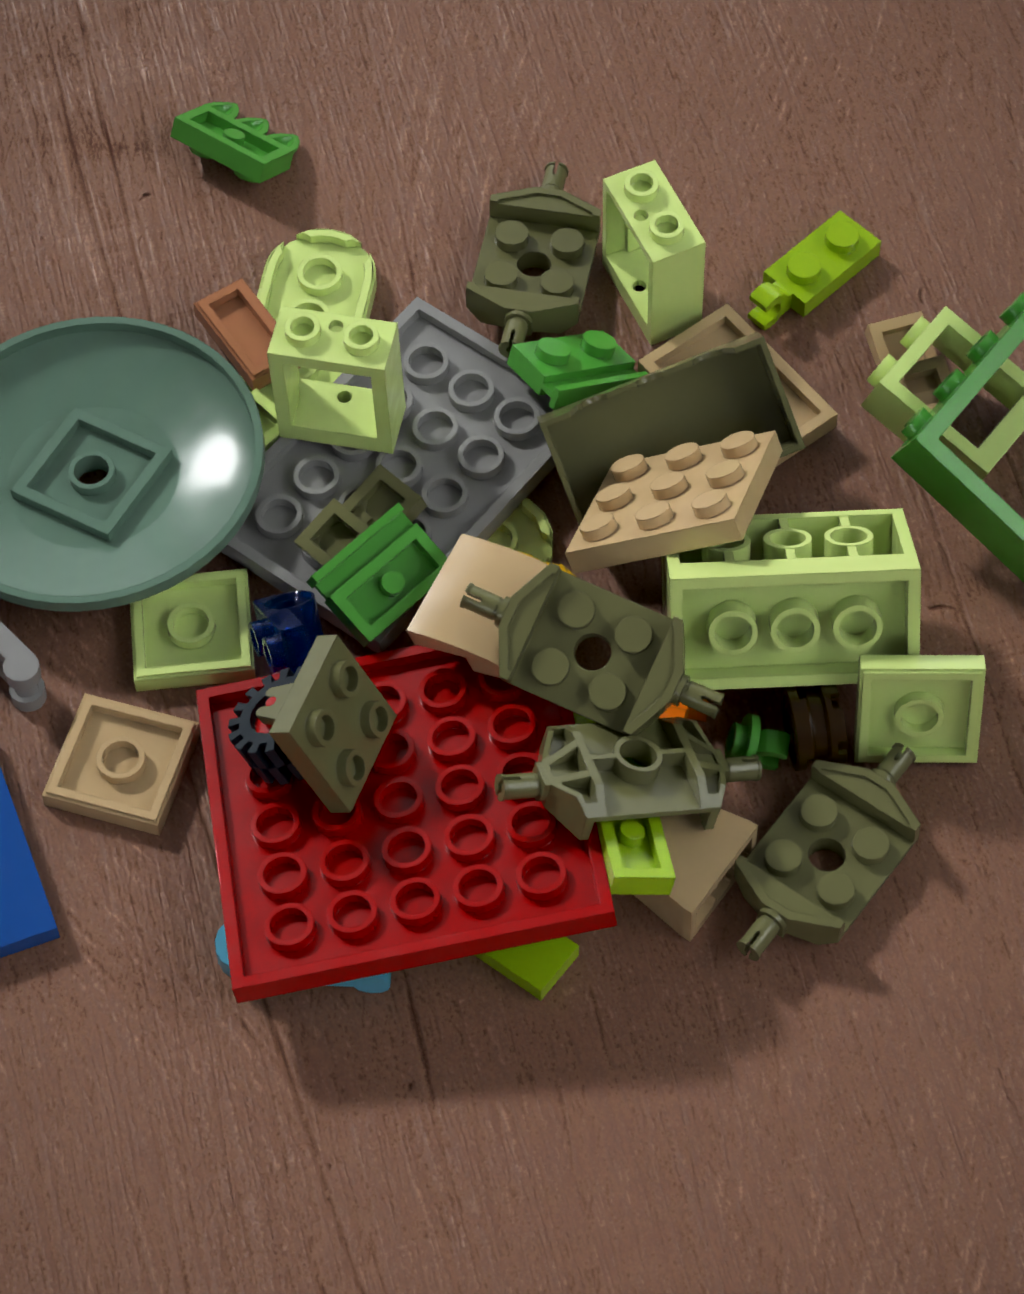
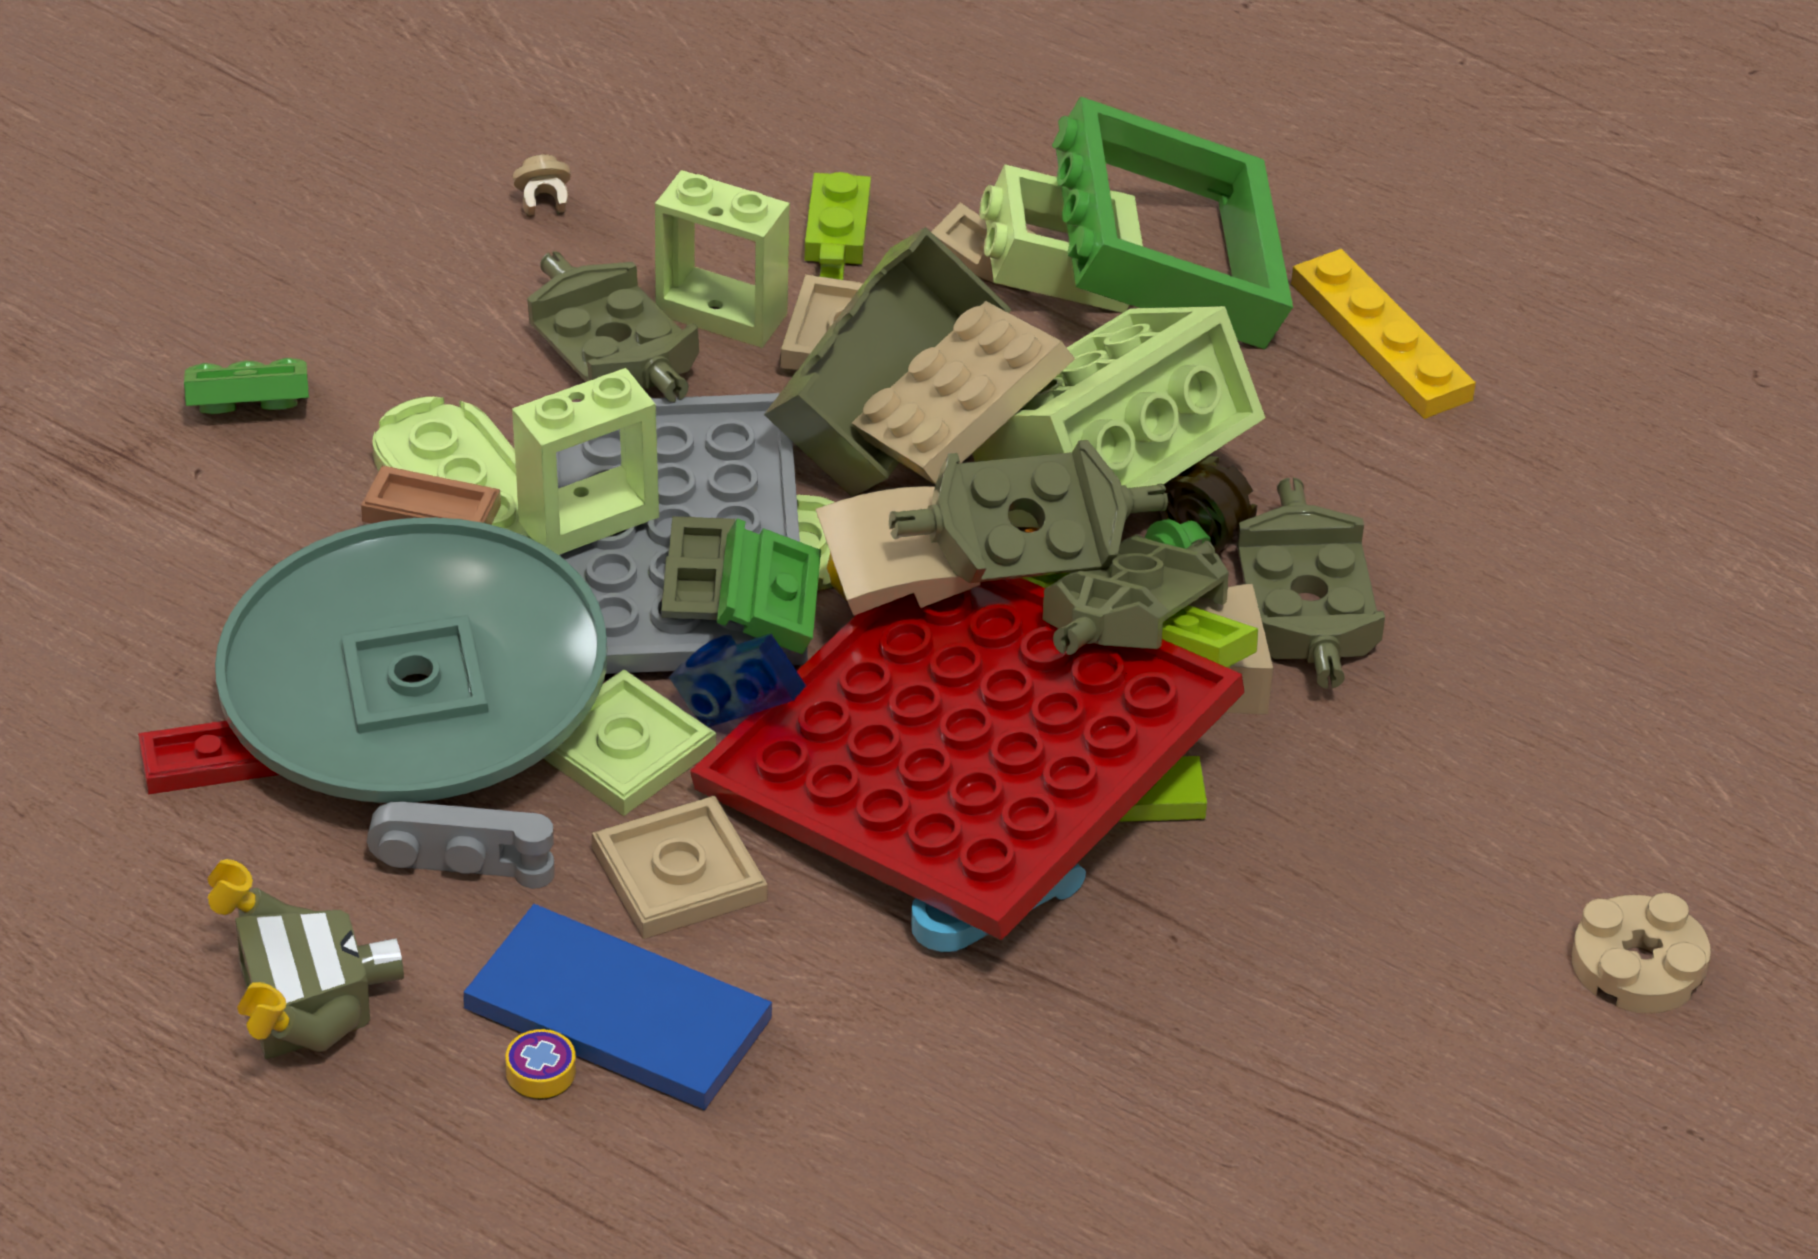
camera: 45 degrees left, 15 degrees down
(315, 725) = (849, 703): olive plate -> none
(572, 366) = (739, 374): bright green plate -> none
(624, 86) = (542, 175): none -> tan plate
(922, 703) = (1281, 435): yellowish green tile -> none

